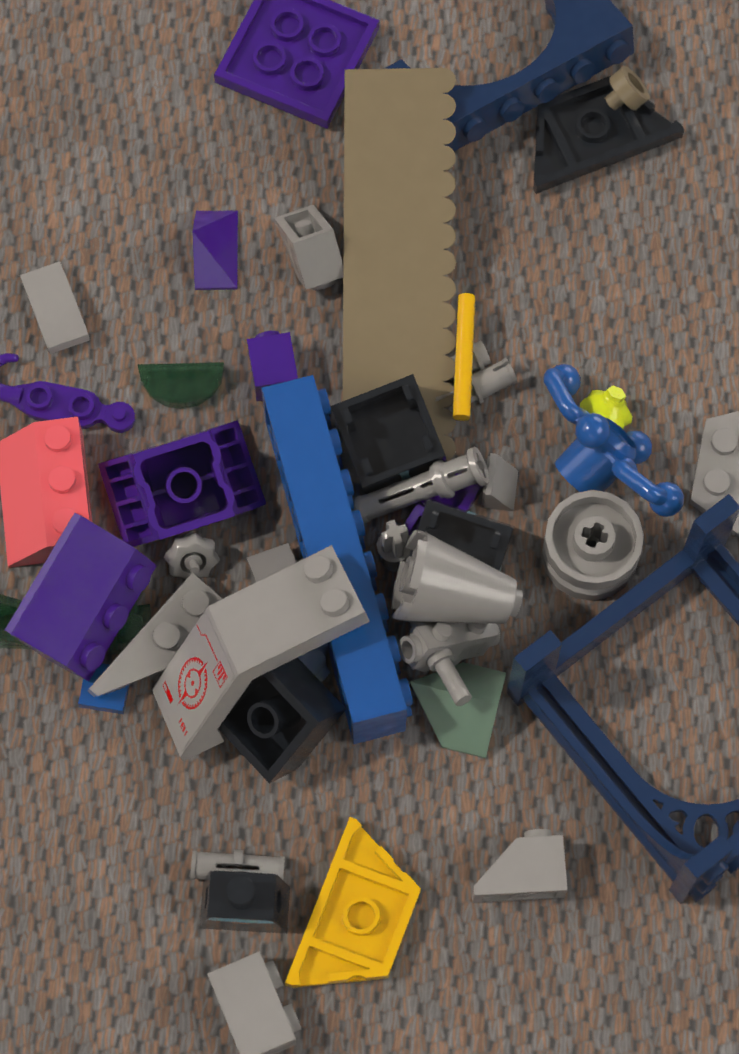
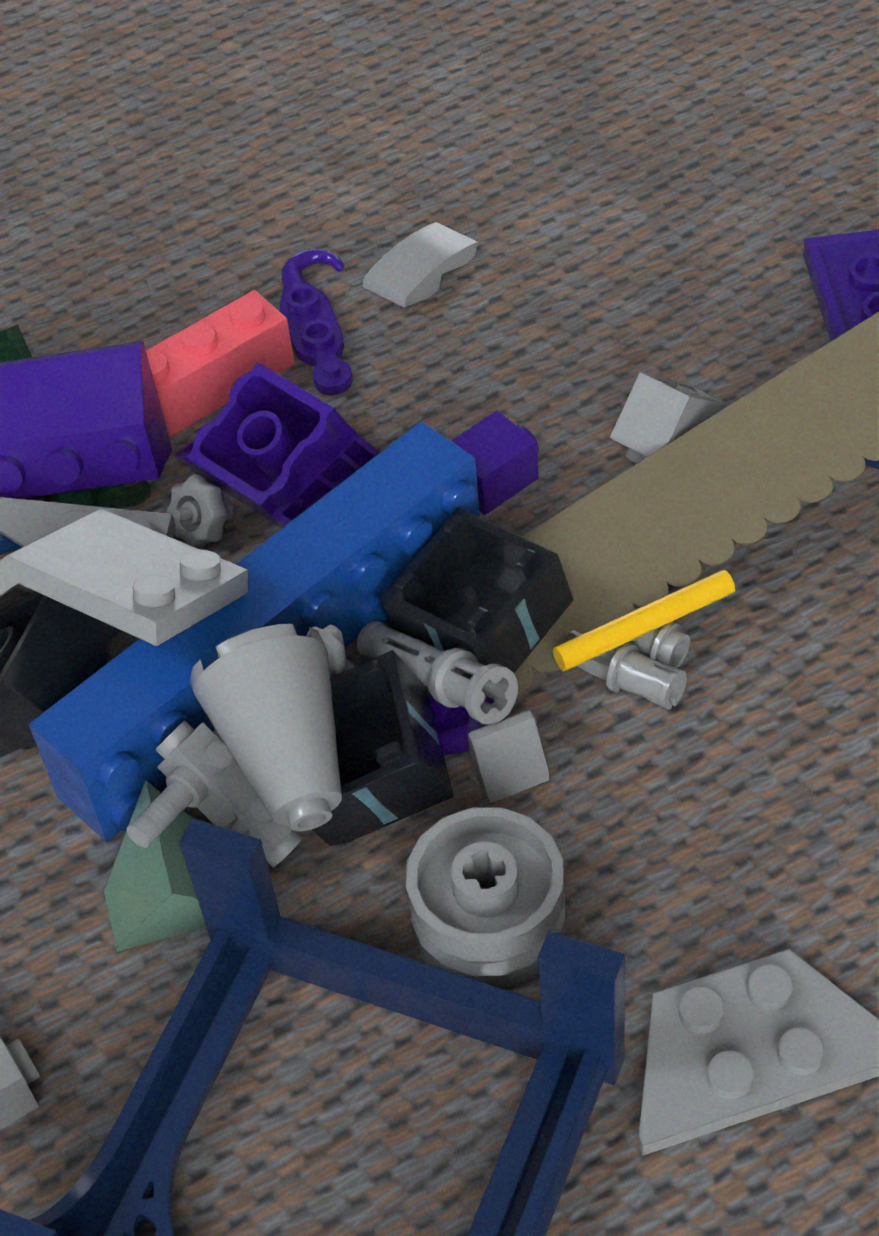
camera: 65 degrees right, 20 degrees down
(181, 383) = (408, 398): clear green plate -> none
(215, 250) = (598, 347): dark purple slope -> none
(604, 449) = (632, 824): blue wheel -> none
(609, 405) = (703, 822): neon yellow piece -> none

